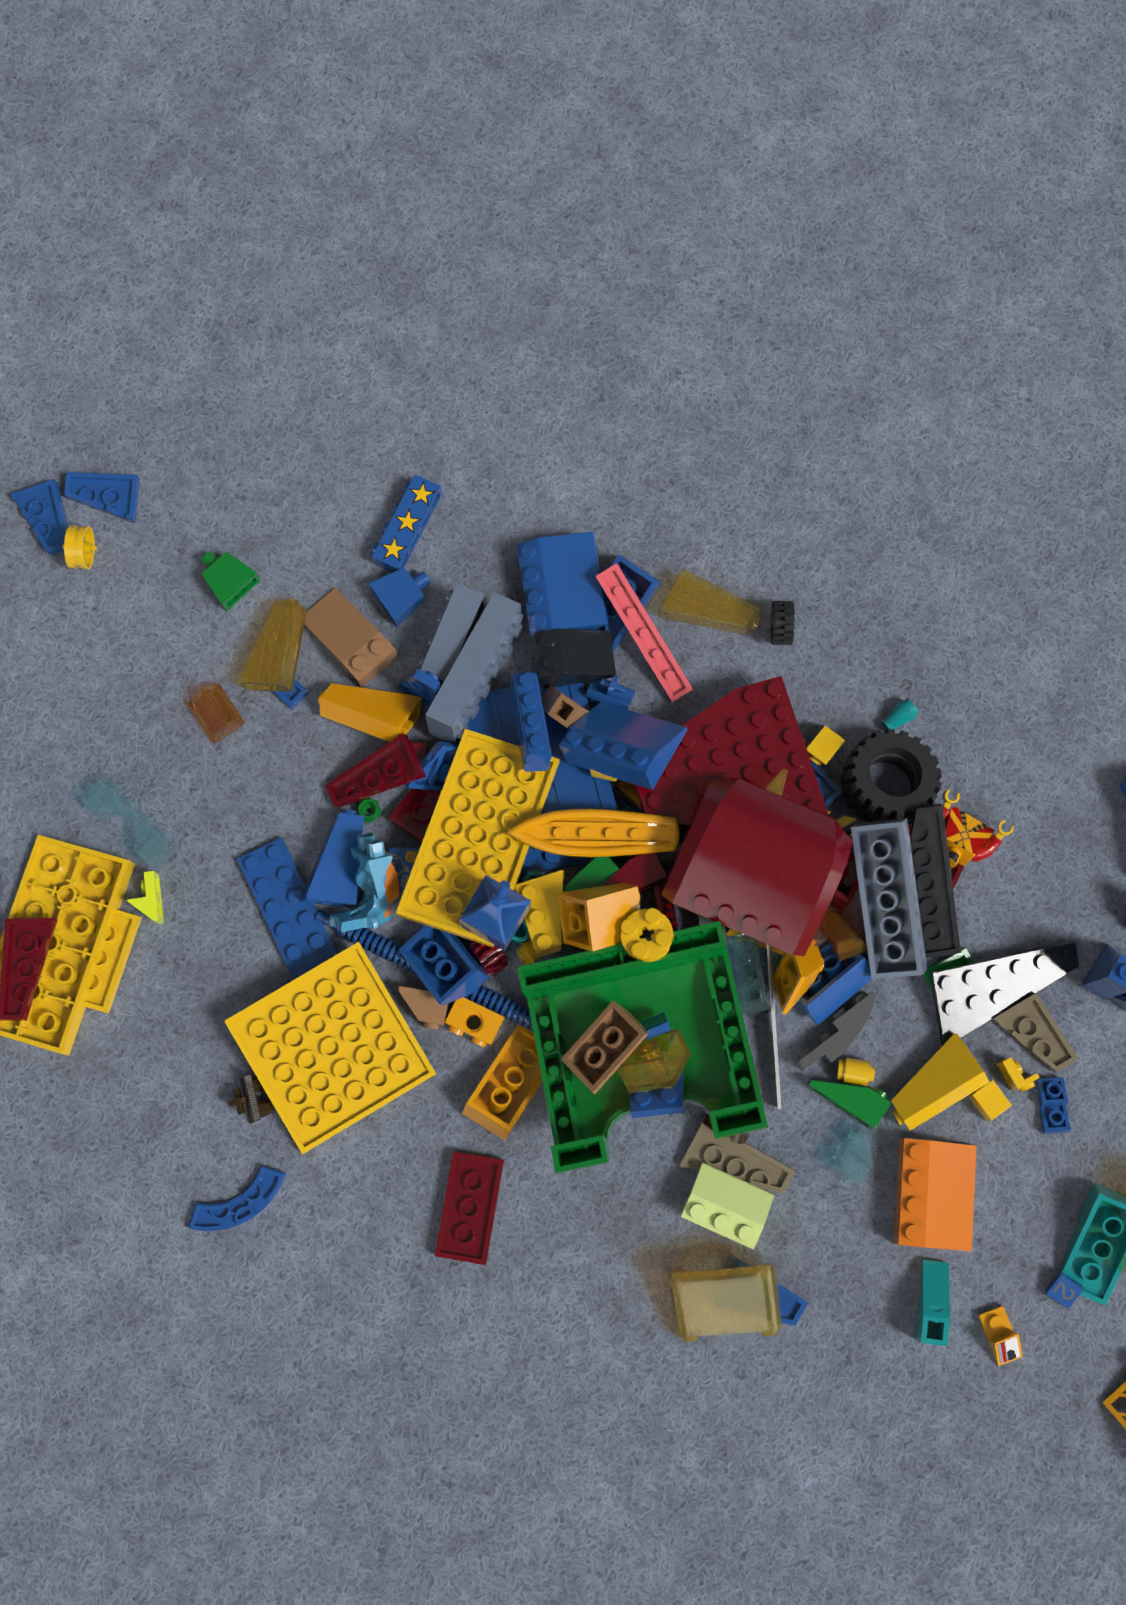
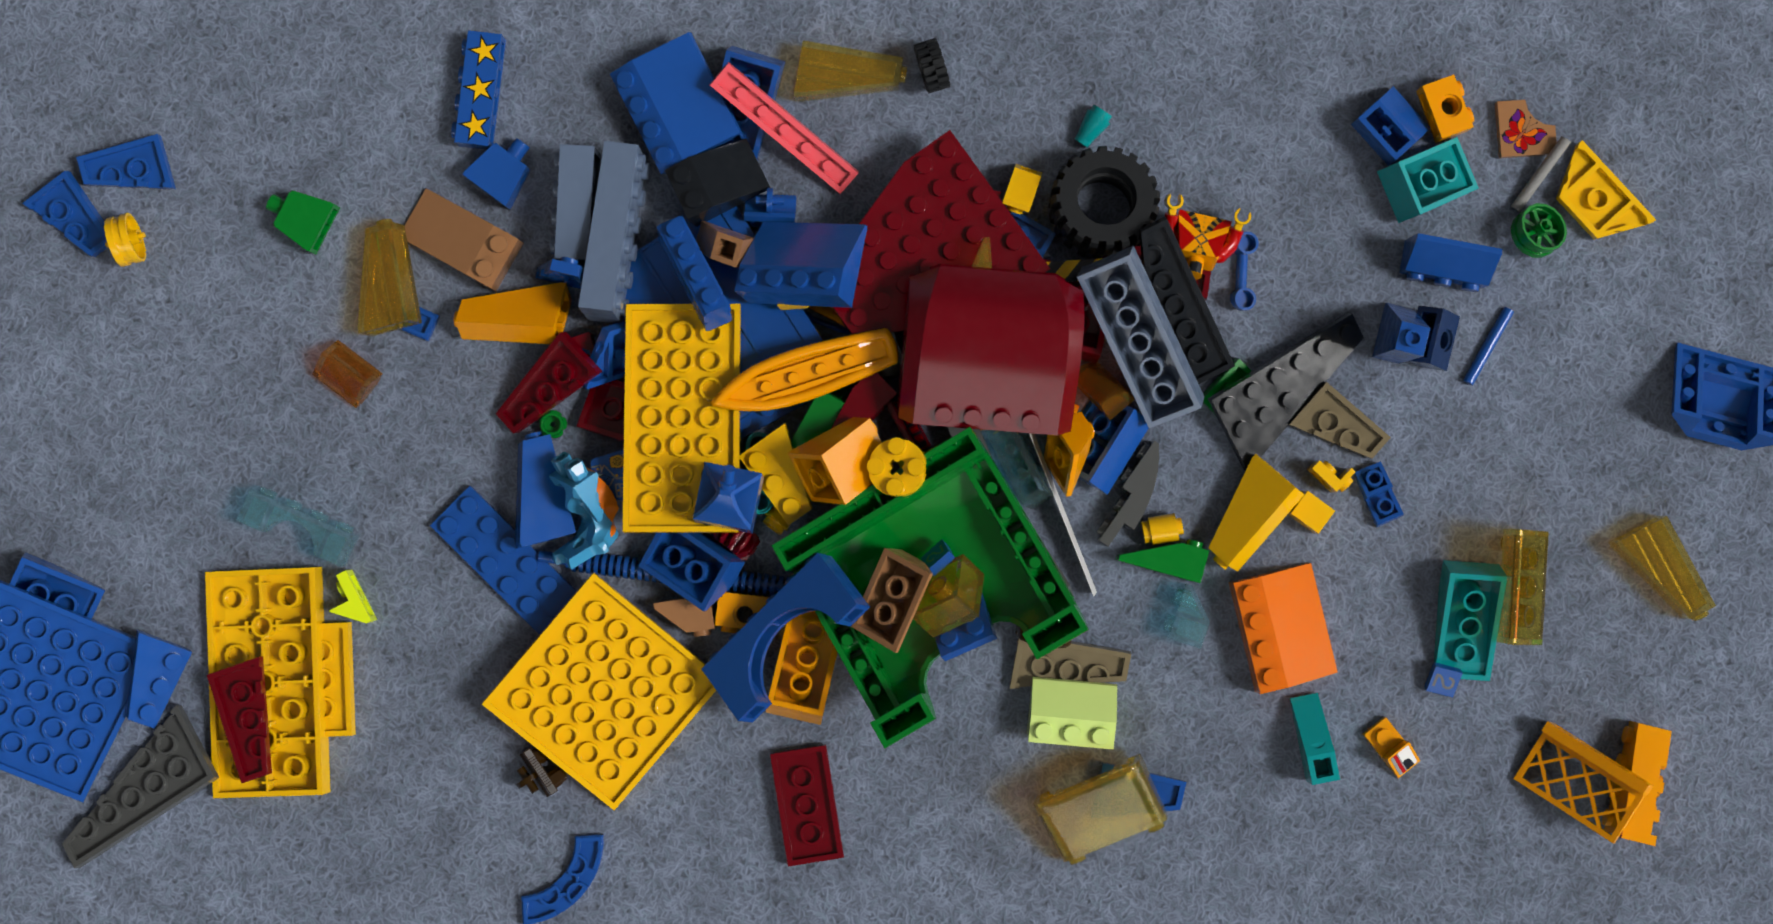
camera: 20 degrees left, 10 degrees up
(454, 1062) = (739, 665): none -> blue arch
(985, 897) = (1247, 299): none -> blue bar

